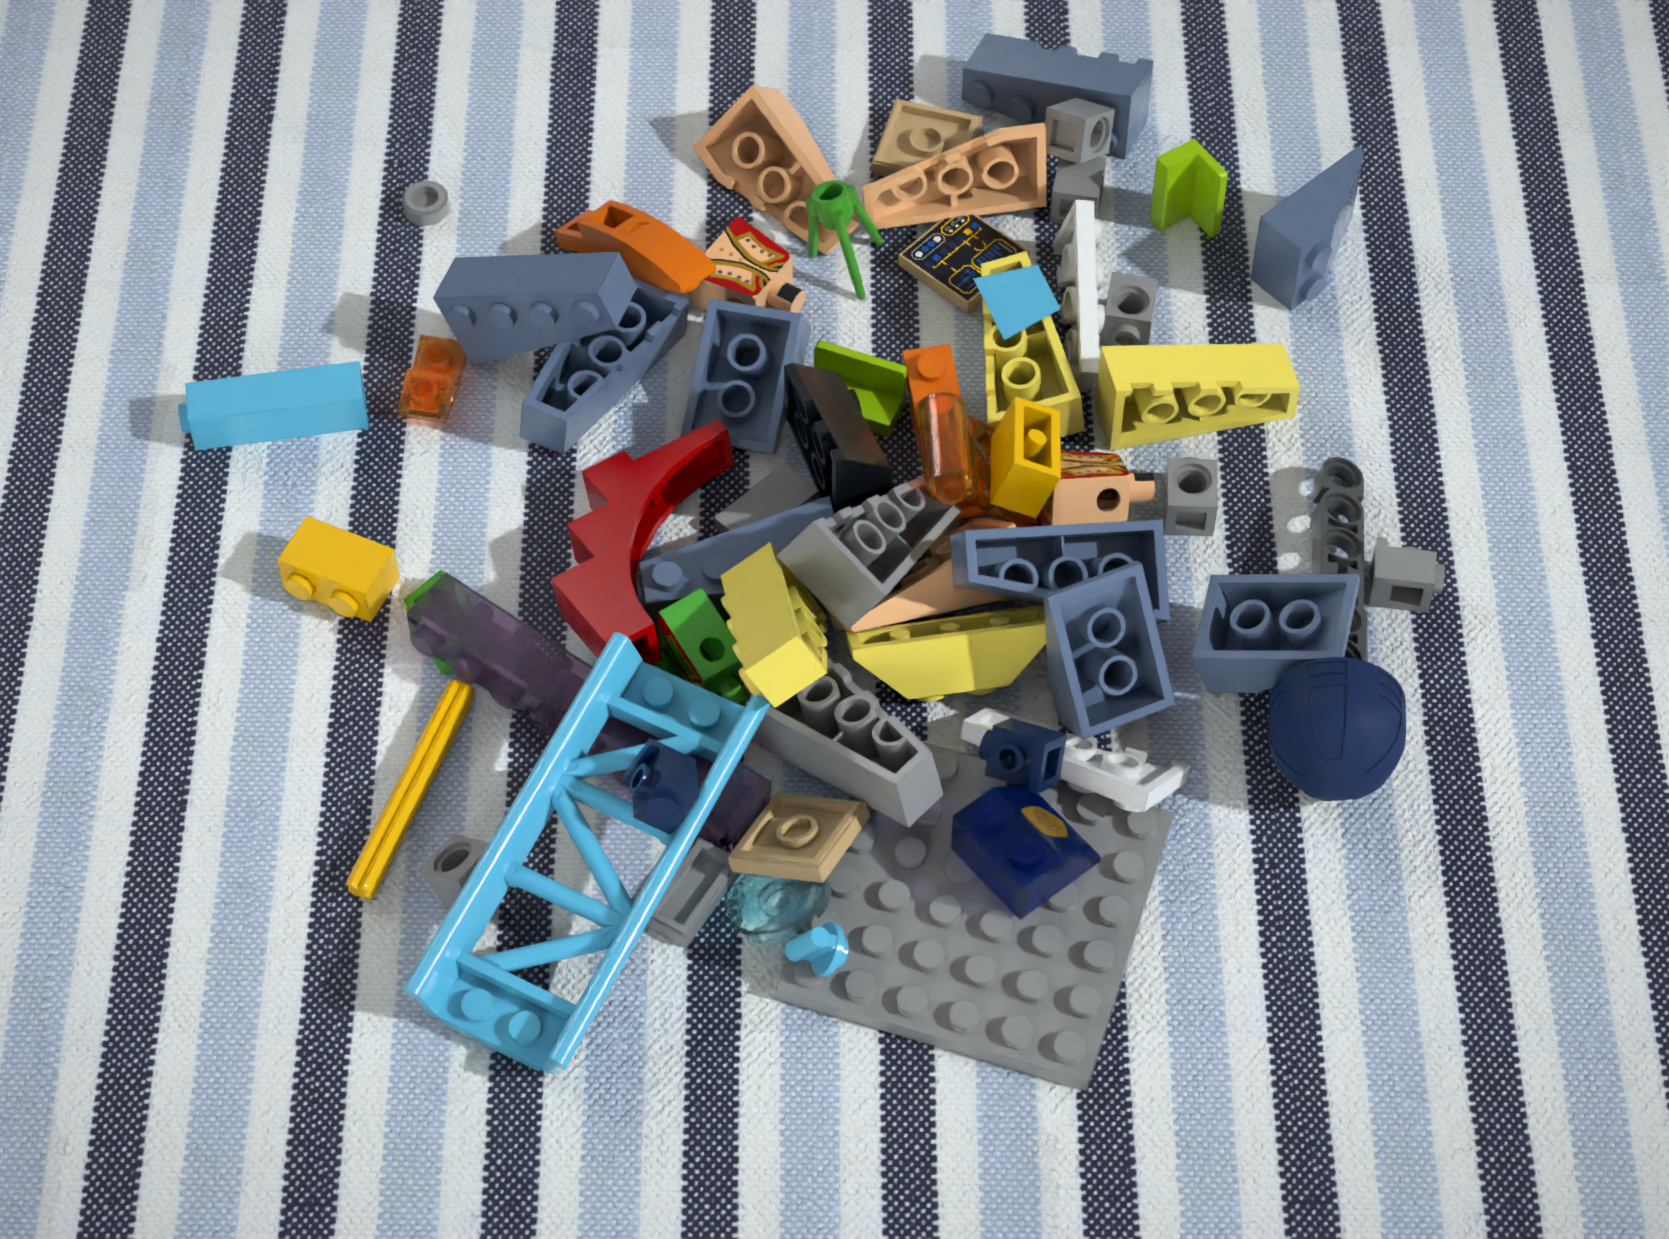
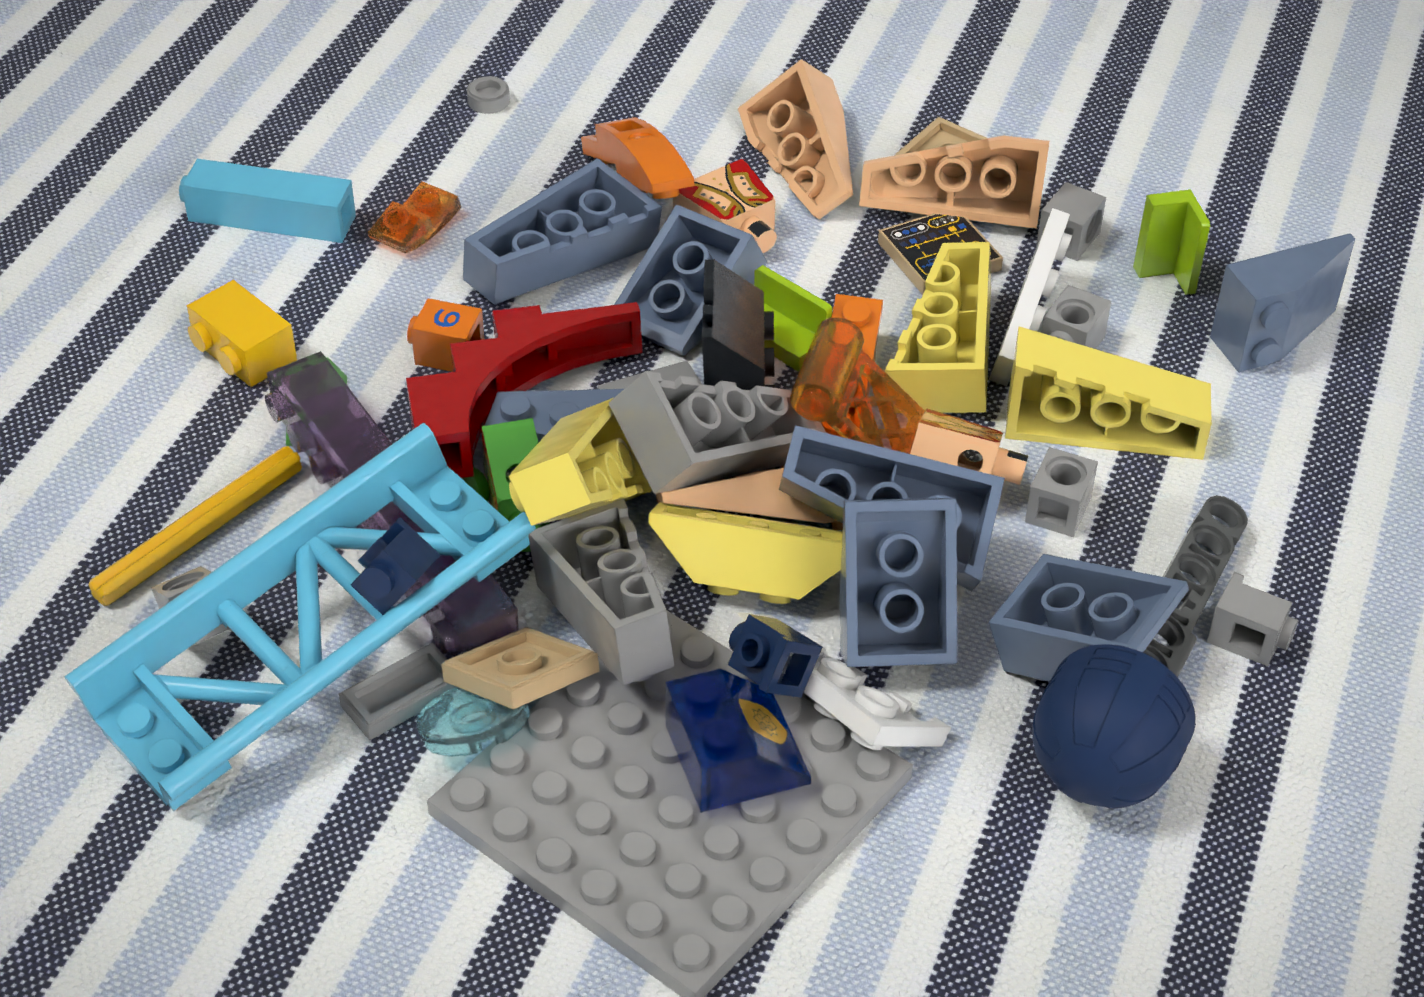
camera: 20 degrees right, 10 degrees down
(532, 300) = (513, 161): sand blue wedge -> none
(541, 508) = (440, 325): none -> orange brick
(821, 946) = (480, 769): medium azure plate -> none
(833, 206) = (827, 164): bright green plant -> none
(1017, 298) = (962, 276): medium azure sticker -> none
(1024, 80) = (1095, 143): sand blue wedge -> none
(1025, 457) = (902, 399): yellow brick -> none
(1078, 130) = (1085, 164): light grey brick -> none

